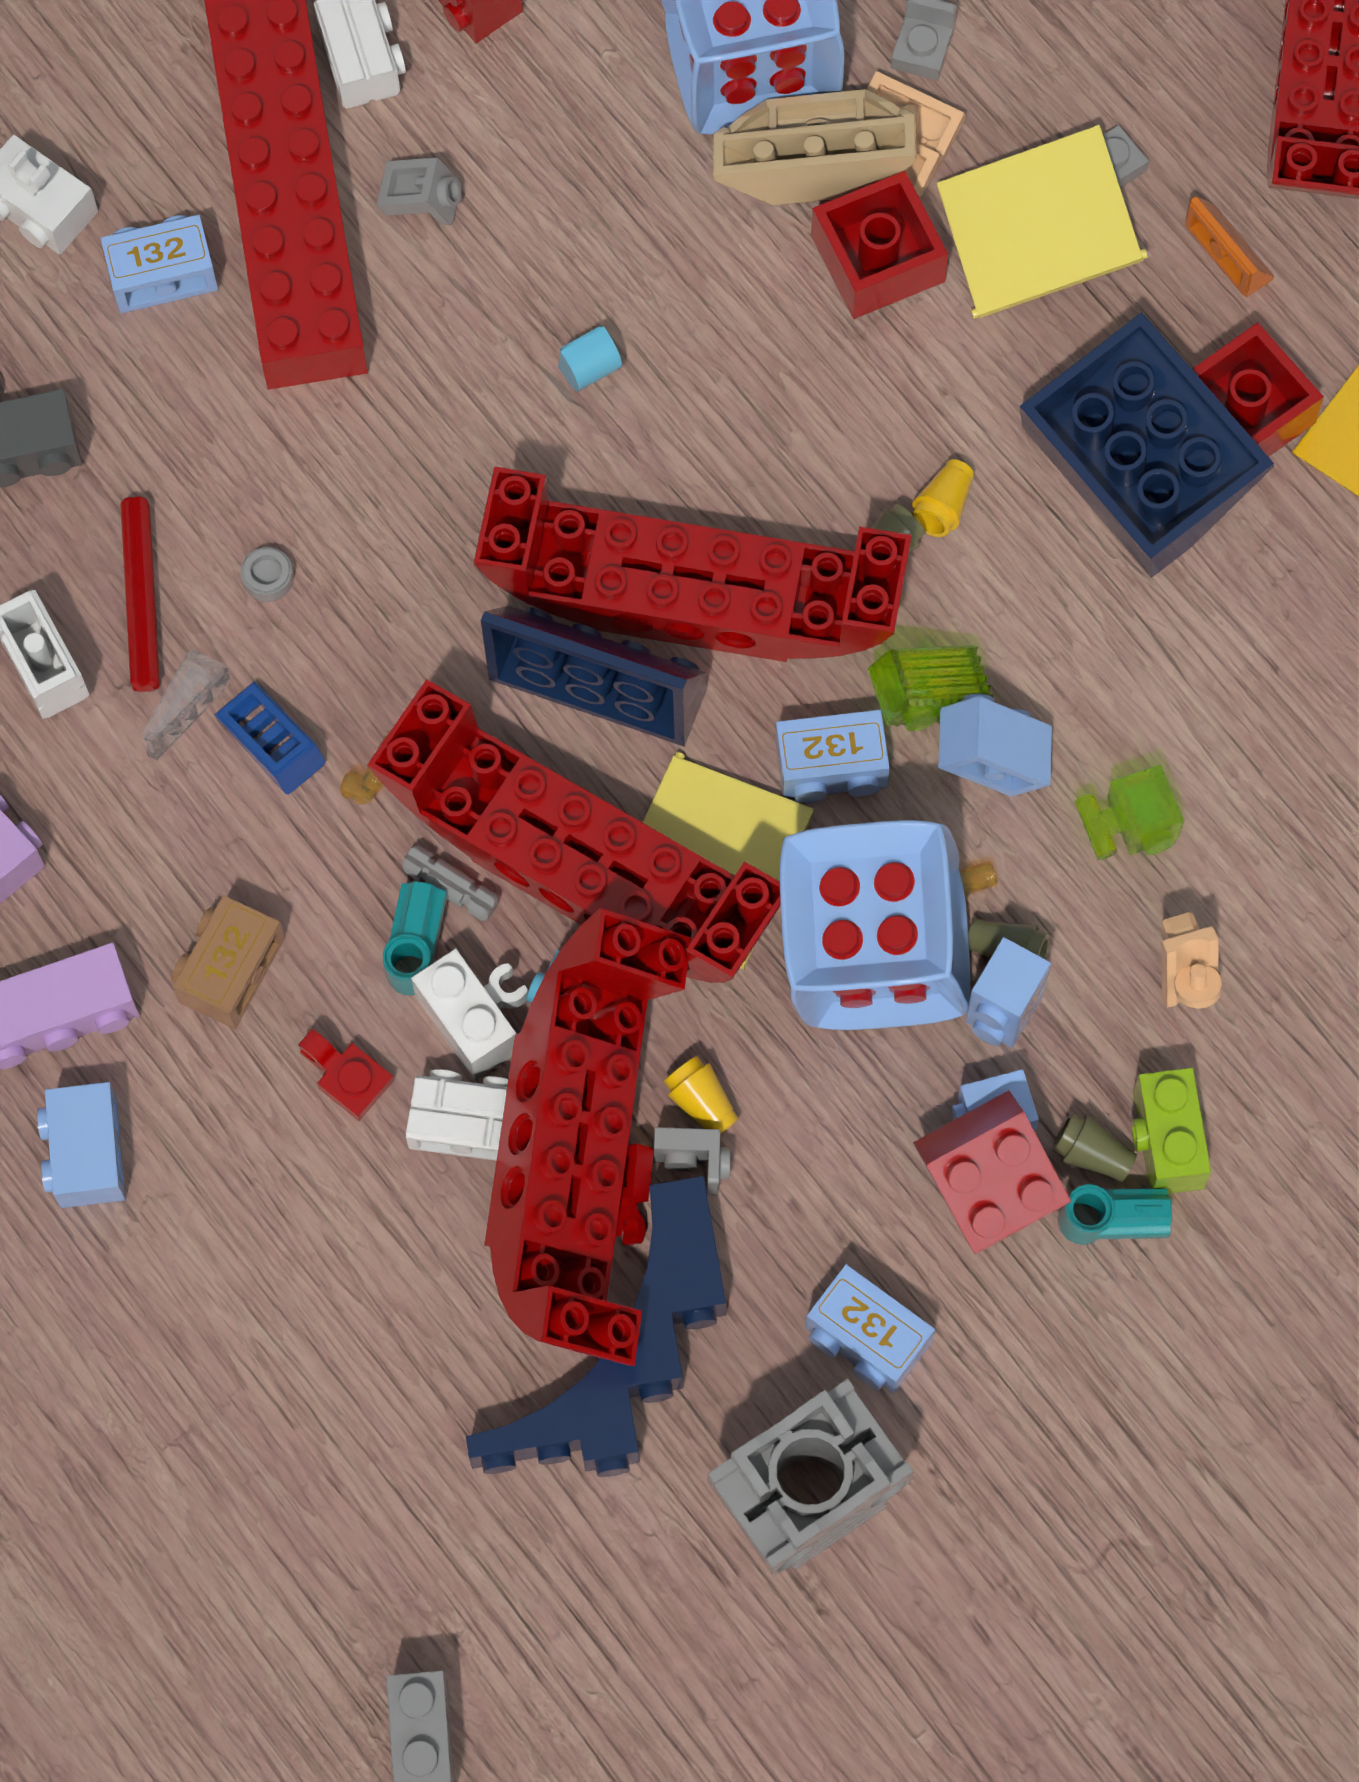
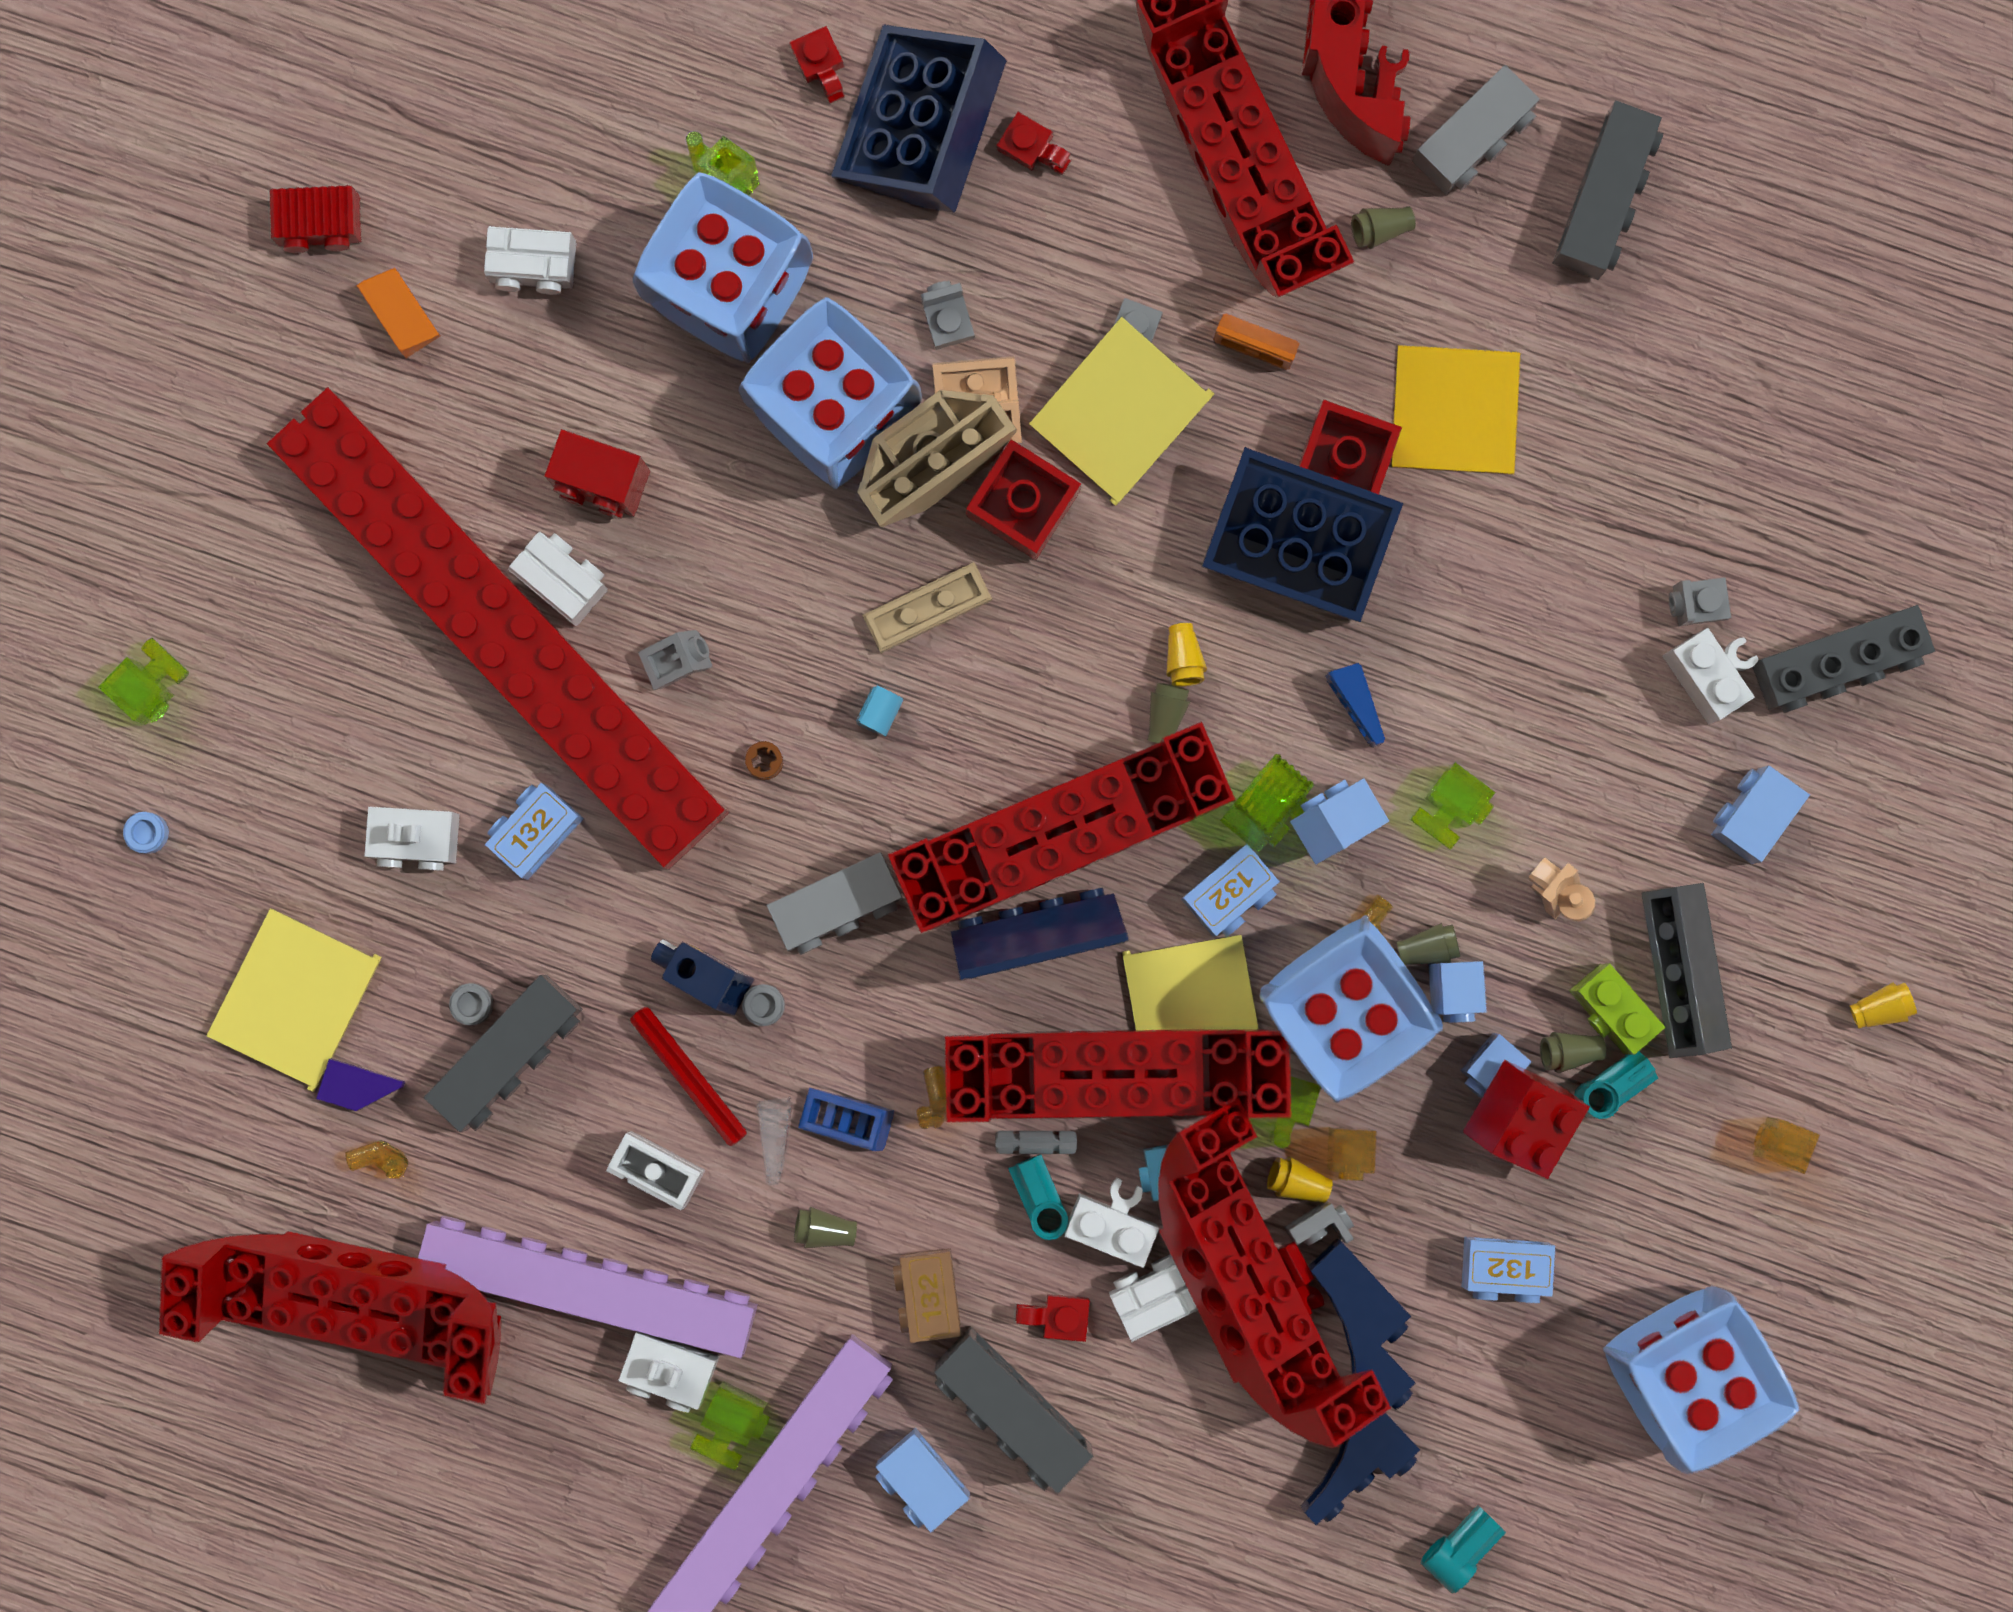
camera: 35 degrees left, 15 degrees up
(166, 827) = (822, 1229): none -> olive cone
(220, 487) = (713, 981): none -> dark blue torso
(230, 1122) = (1013, 1410): none -> dark grey brick
(407, 514) = (835, 904): none -> light grey brick
(447, 352) = (752, 755): none -> dark orange bush
(598, 1605) = (1455, 1557): none -> teal piece
(709, 298) = (927, 607): none -> tan tile
(747, 1006) = (1303, 1102): none -> clear neon green brick
(780, 1096) = (1351, 1152): none -> clear yellow brick
(826, 1429) = (1561, 1439): light grey piece -> none
(1002, 1563) = (1701, 1379): none -> light blue piece
(1098, 638) = (1354, 694): none -> blue slope
(1266, 1392) = (1785, 1144): none -> clear yellow brick
(1275, 1136) = (1686, 970): none -> dark grey brick

